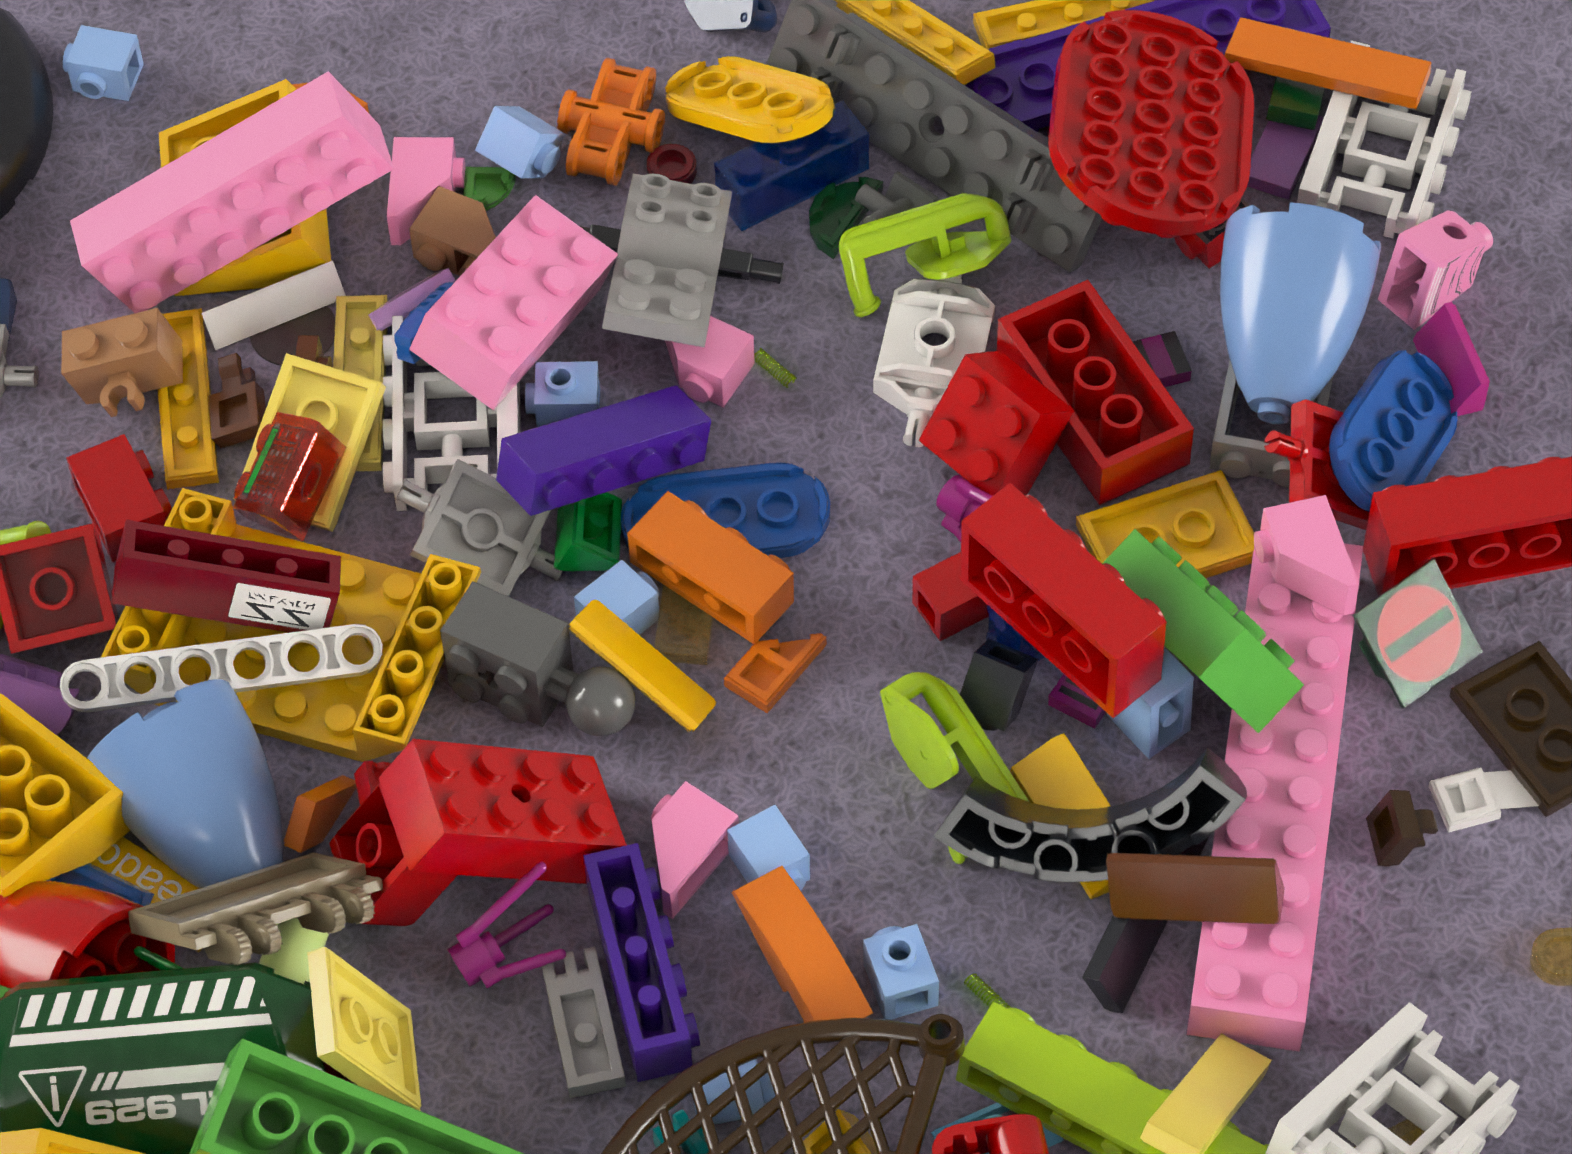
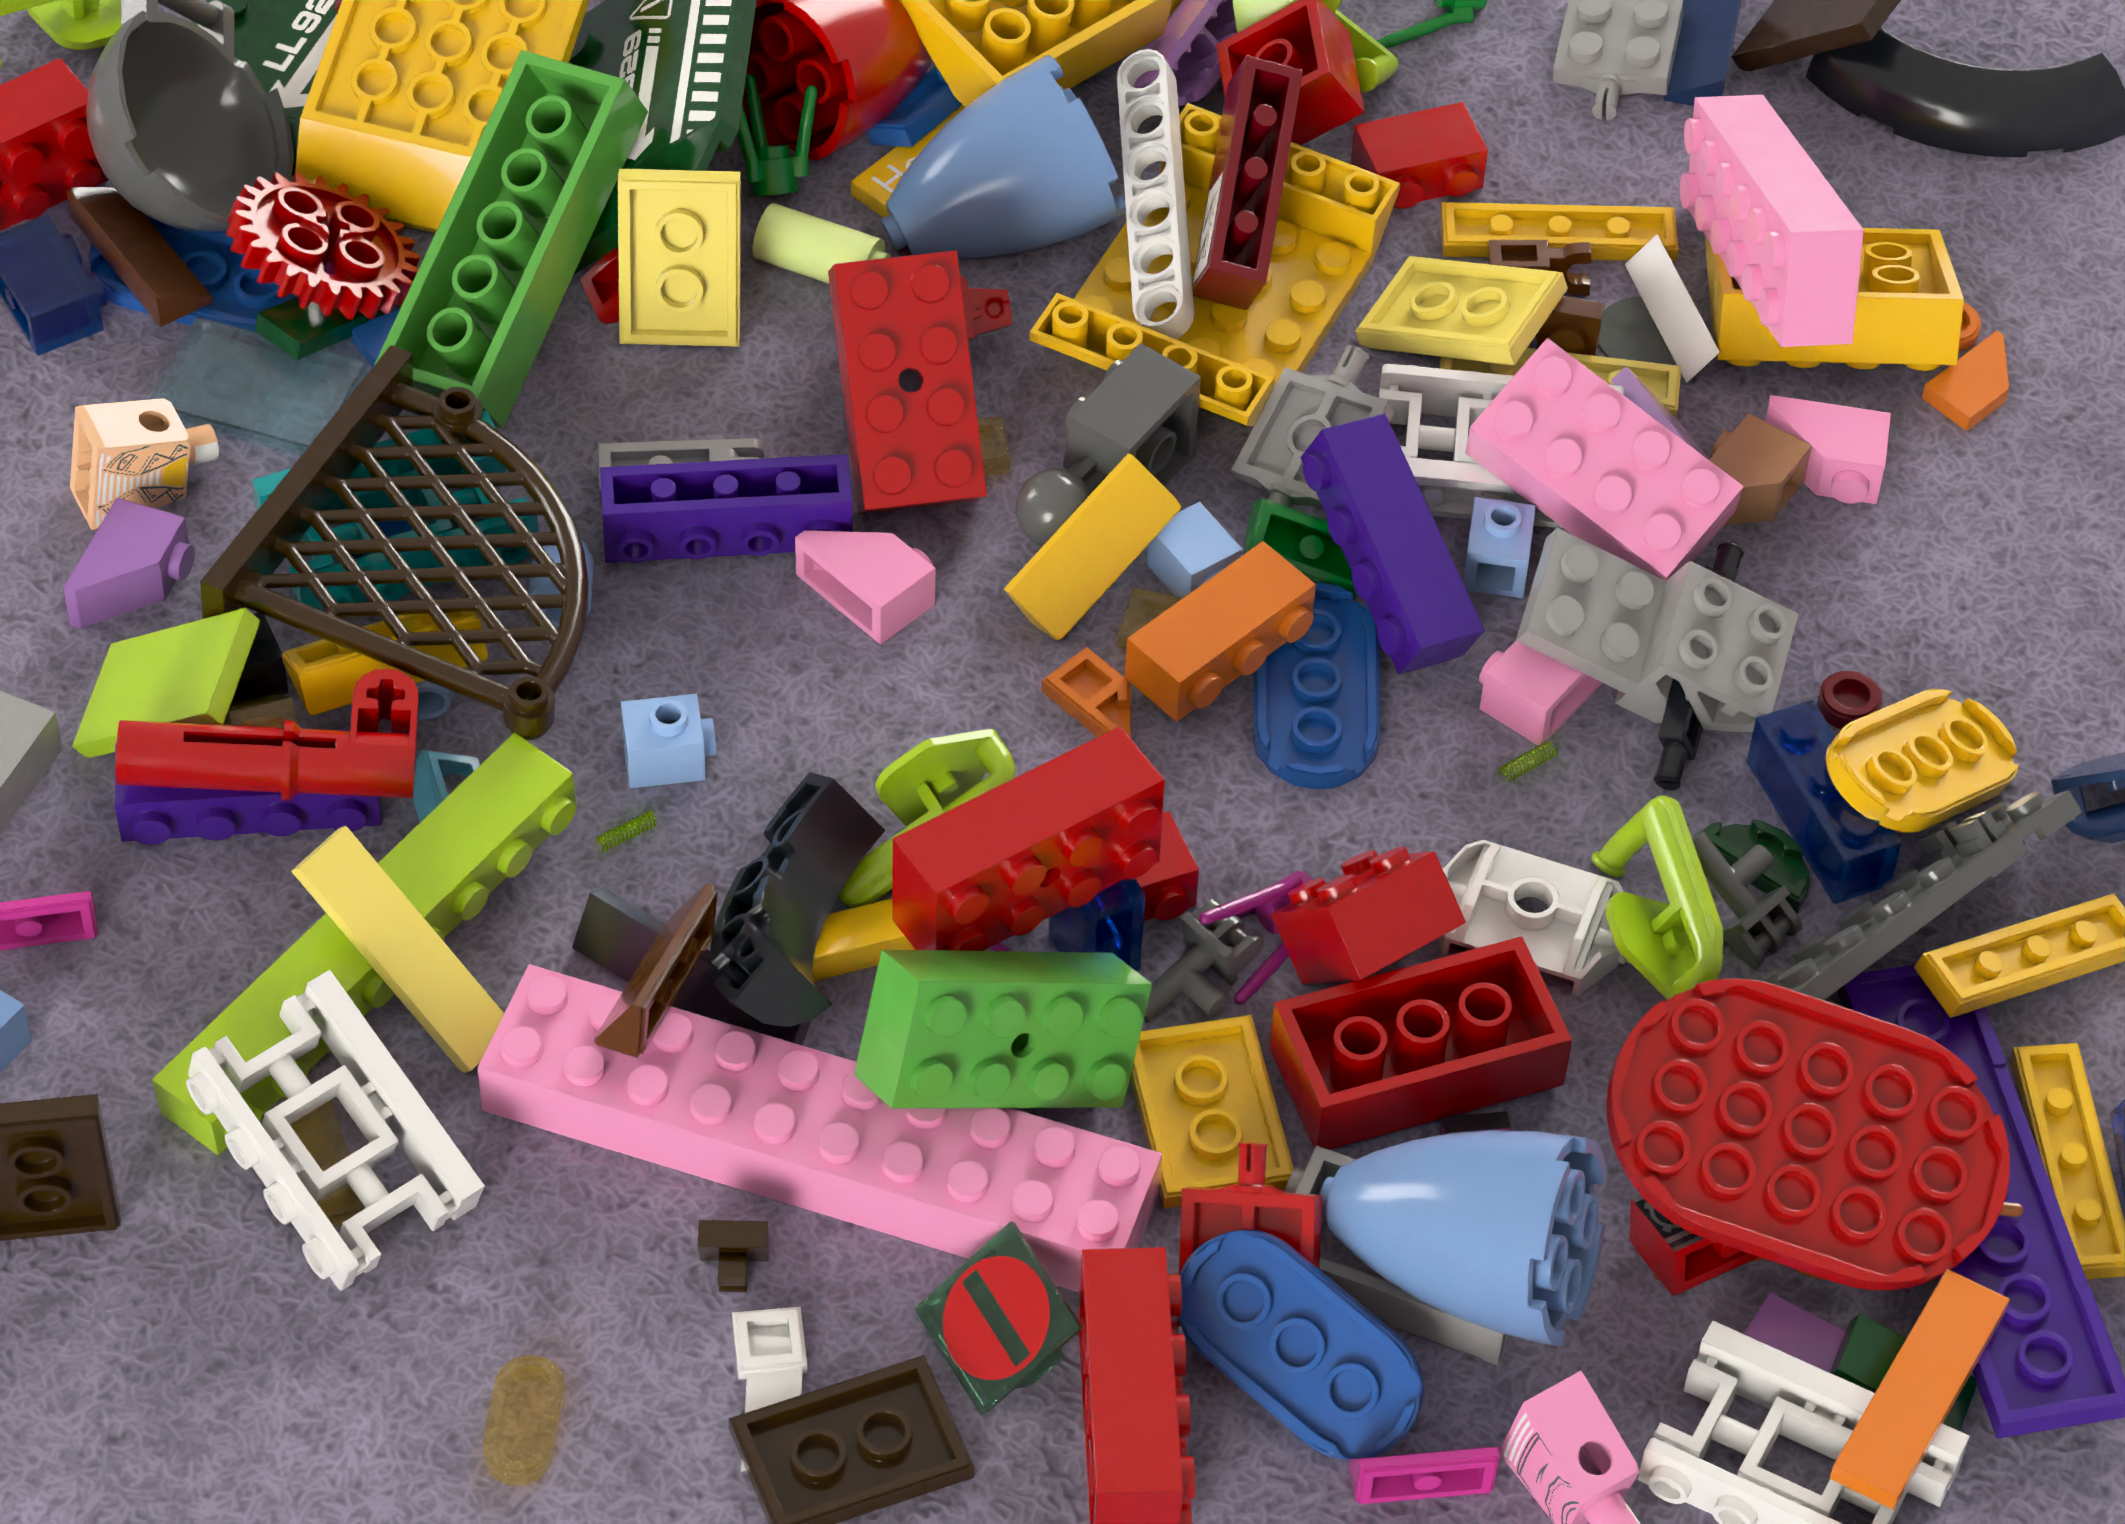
camera: 95 degrees right, 5 degrees down
(103, 63) = (2044, 186): light blue brick -> none
(122, 359) = (1594, 159): medium nougat brick -> none
(242, 912) = (832, 159): dark tan hinge -> none
(289, 474) = (1395, 270): clear red slope -> none
(317, 812) = (983, 271): orange tile -> none
(479, 955) = (775, 390): magenta plant -> none
(488, 184) = (1835, 519): bright green tile -> none
(520, 142) = (1883, 541): light blue brick -> none
(611, 121) = (1907, 634): orange axle -> none
(765, 844) = (838, 648): light blue brick -> none
(800, 949) = (700, 645): orange slope -> none
(1308, 553) = (1089, 1166): bright pink slope -> none

